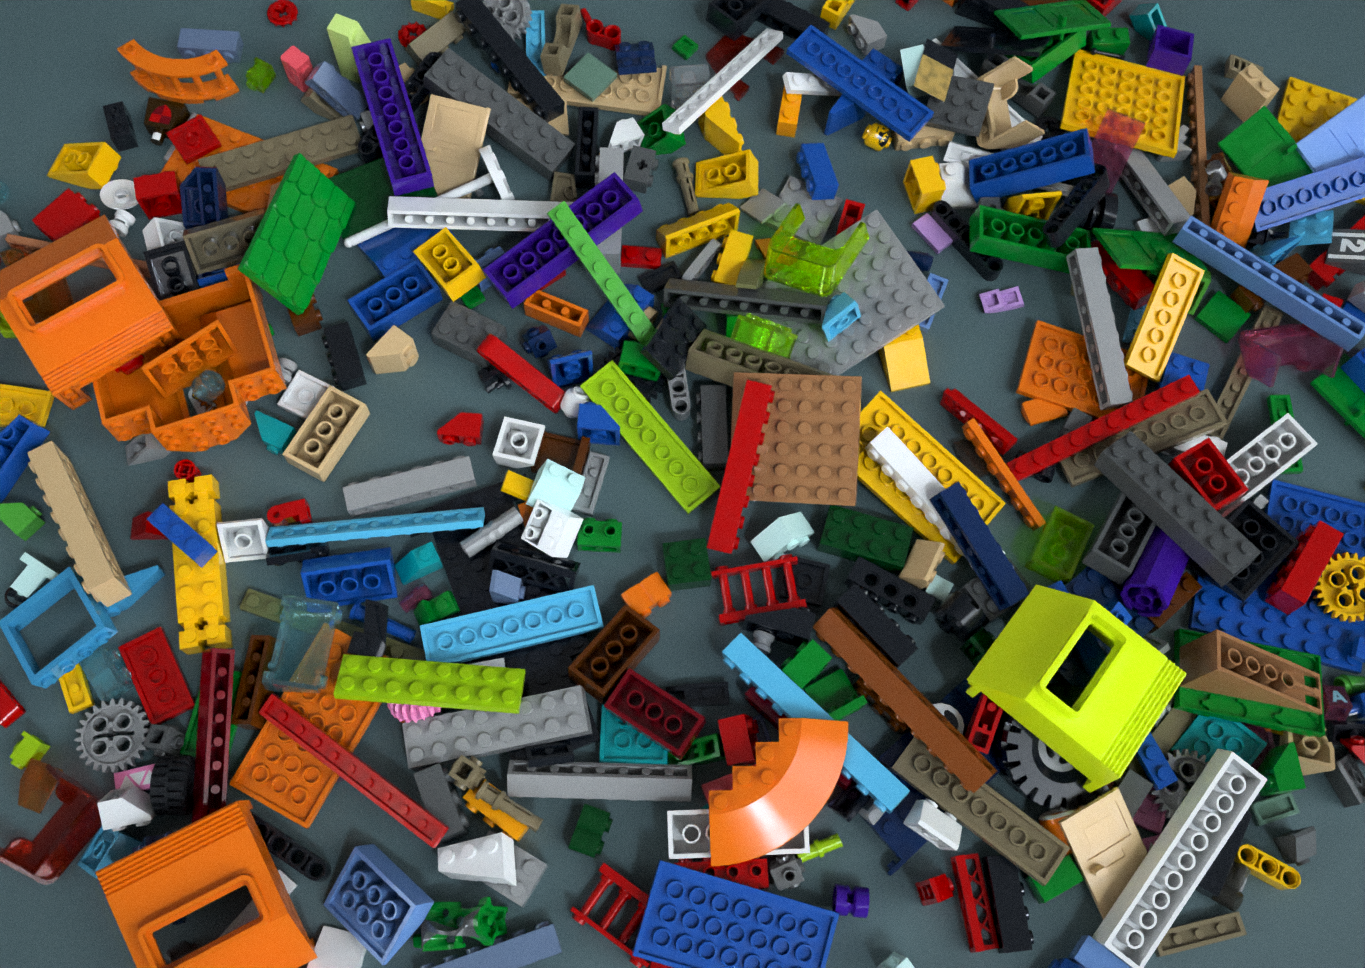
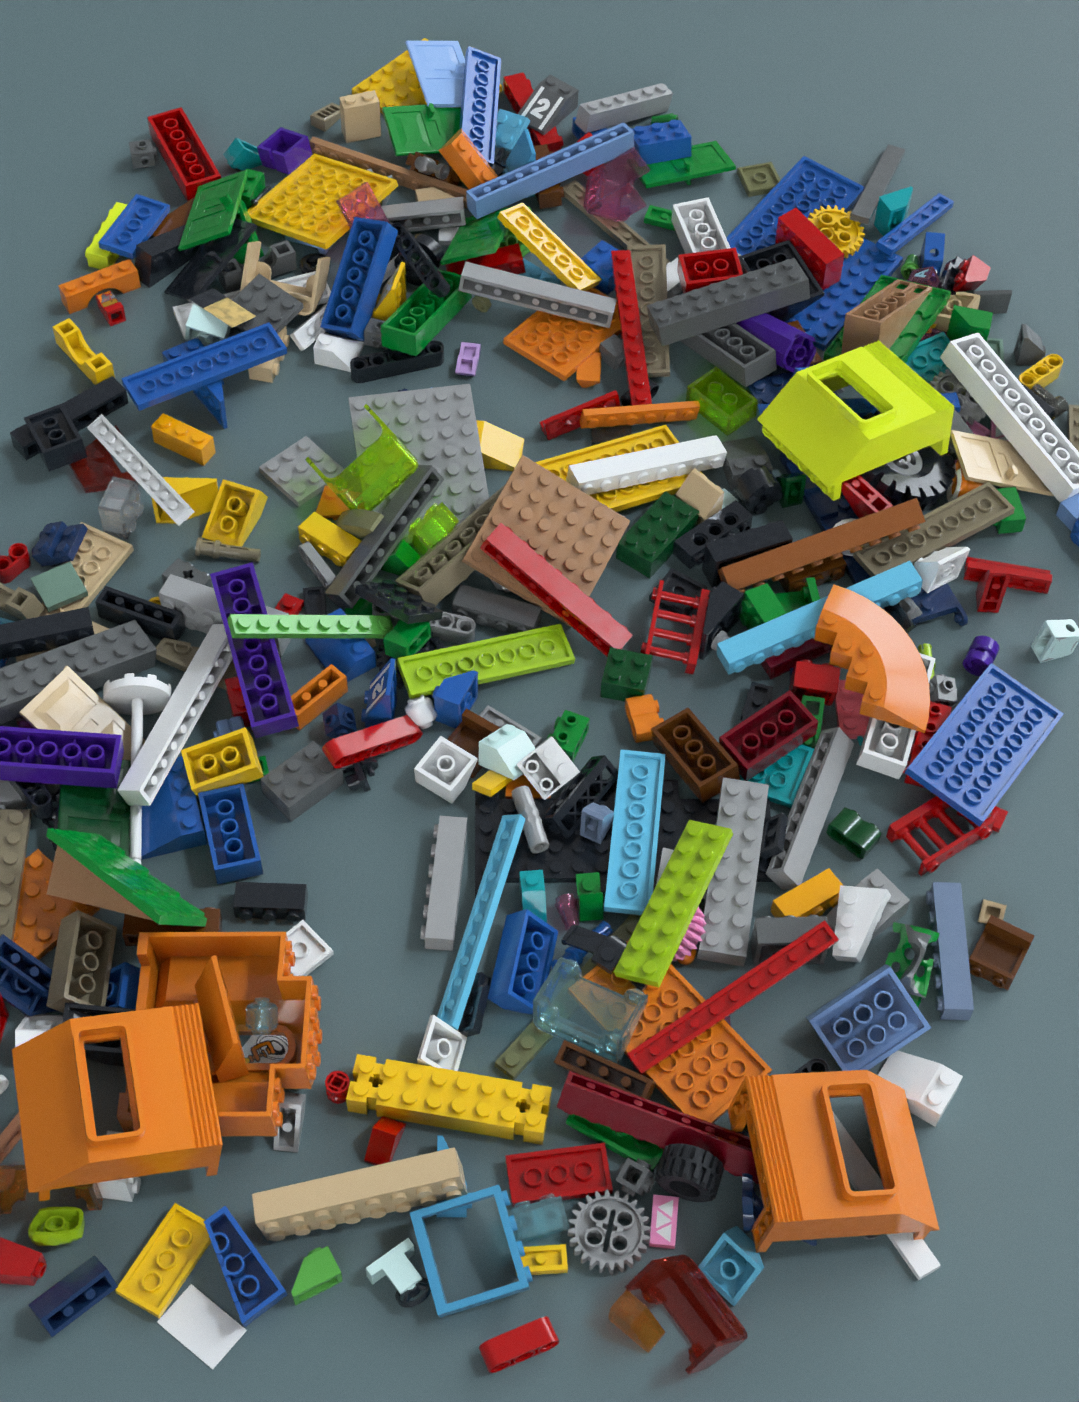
camera: 65 degrees left, 15 degrees down
(27, 749) = (595, 1322): lime brick -> none
(124, 808) = (698, 1228): white slope -> none
(182, 535) = (423, 1087): blue brick -> none
(274, 433) = (335, 989): teal slope -> none
(290, 513) = (427, 998): red leg -> none
(326, 433) = (356, 938): tan brick -> none
(393, 352) = (292, 847): tan slope -> none
(460, 771) = (769, 896): dark tan brick -> none
(464, 429) = (404, 816): red slope -> none
(499, 801) = (806, 885): dark tan pin -> none
(626, 135) = (143, 581): white slope -> none
(654, 135) = (153, 551): green slope -> none
(685, 47) = (64, 503): green tile -> none
(697, 229) = (279, 554): yellow slope -> none
(762, 206) = (282, 498): light grey piece -> none
(781, 535) = (632, 592): light aqua brick -> none
(807, 84) = (176, 410): white plate -> none
(817, 171) = (270, 440): blue brick -> none
(839, 315) = (441, 458): medium azure slope -> none
(850, 215) = (332, 432): red slope -> none
(866, 33) = (135, 356): light grey slope -> none
(877, 136) = (254, 387): yellow head -> none
(923, 184) = (328, 367): yellow brick -> none
(932, 233) = (375, 384): lavender tile -> none
(979, 546) = (706, 444): dark blue brick -> none
(1007, 904) = (1016, 549): black brick -> none
(1222, 317) = (559, 219): green tile -> none

